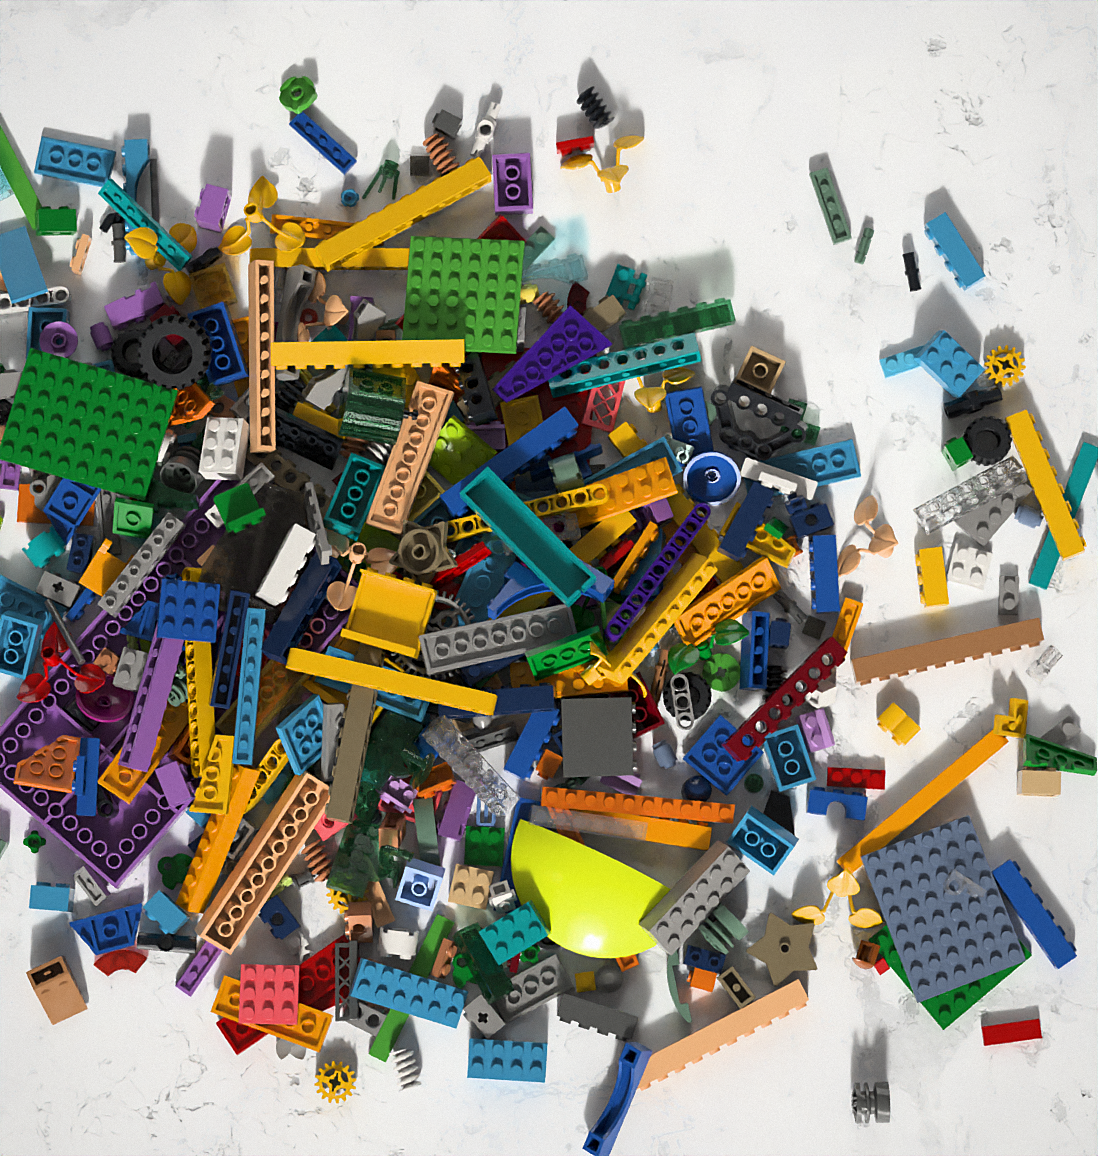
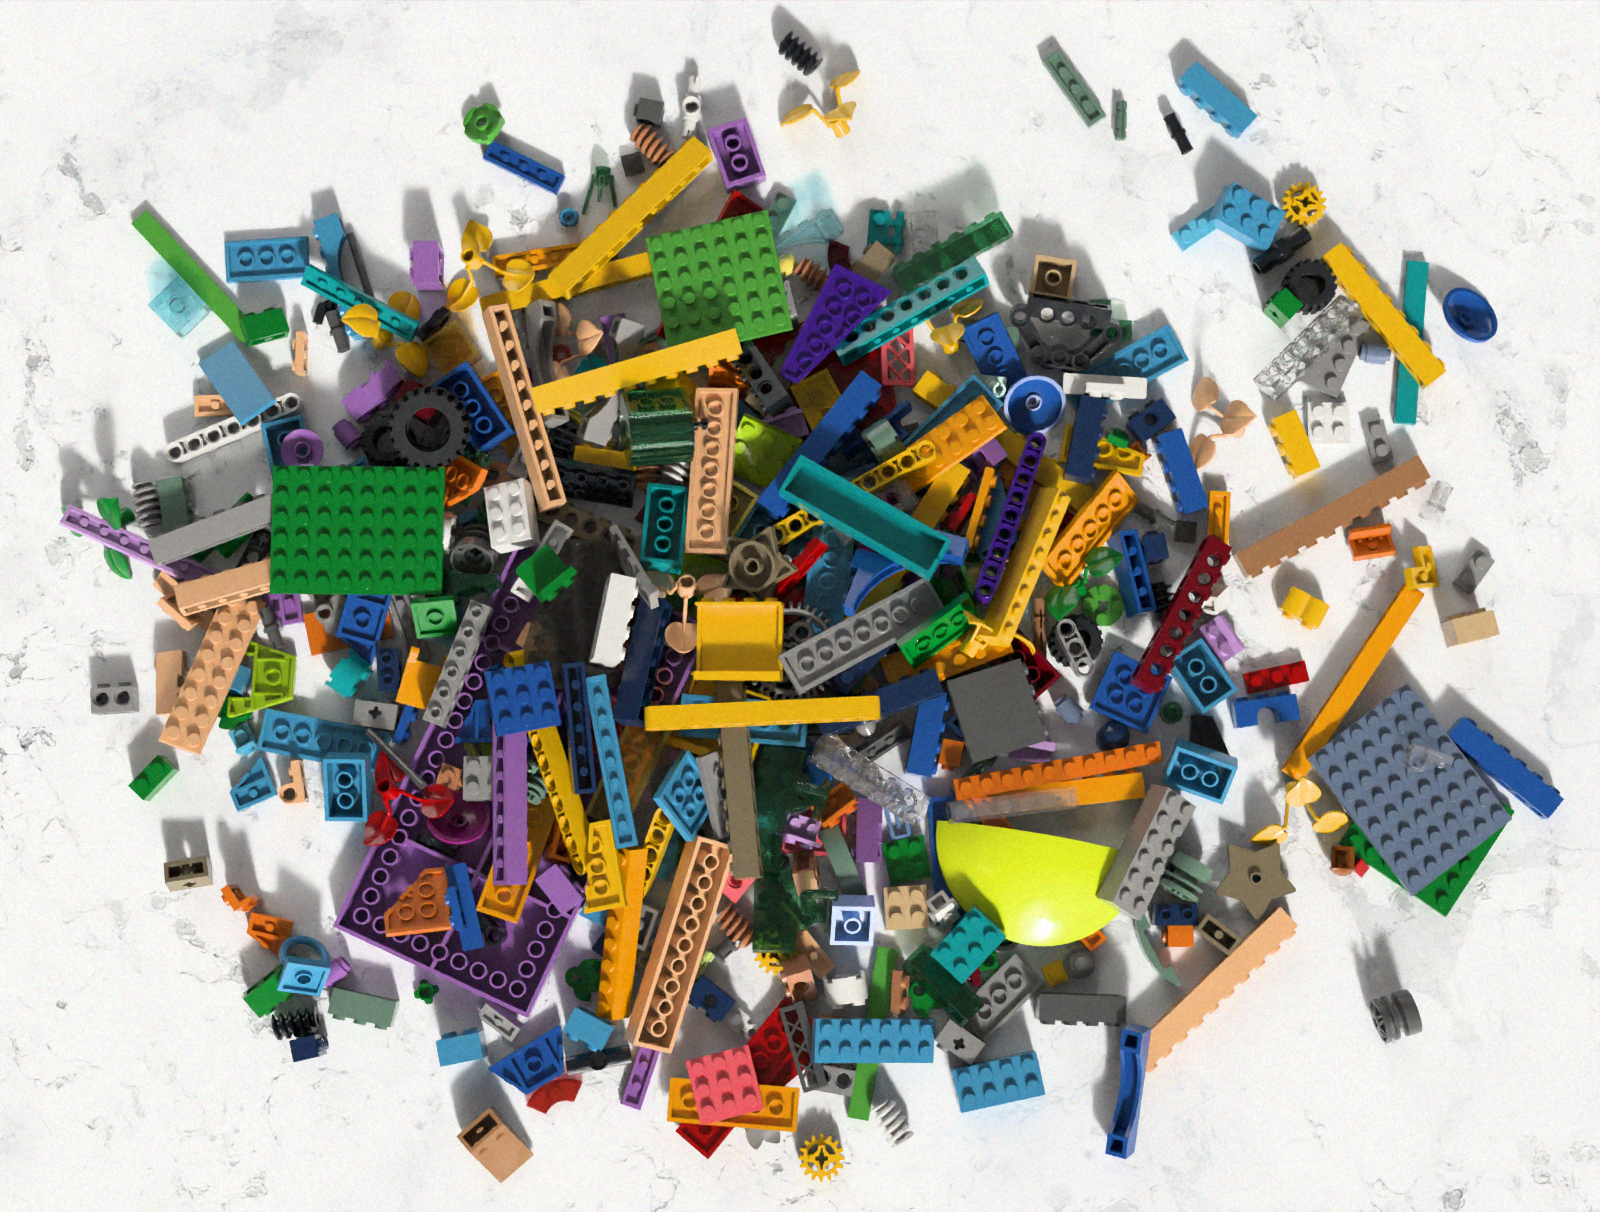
camera: 20 degrees left, 0 degrees up
(583, 144) = (783, 101): red plate -> none
(795, 504) = (1131, 407): dark blue gear -> none
(975, 682) = (1371, 542): none -> orange bracket
(1011, 1032) = (1516, 898): red tile -> none
(1047, 754) = (1469, 596): green wing -> none

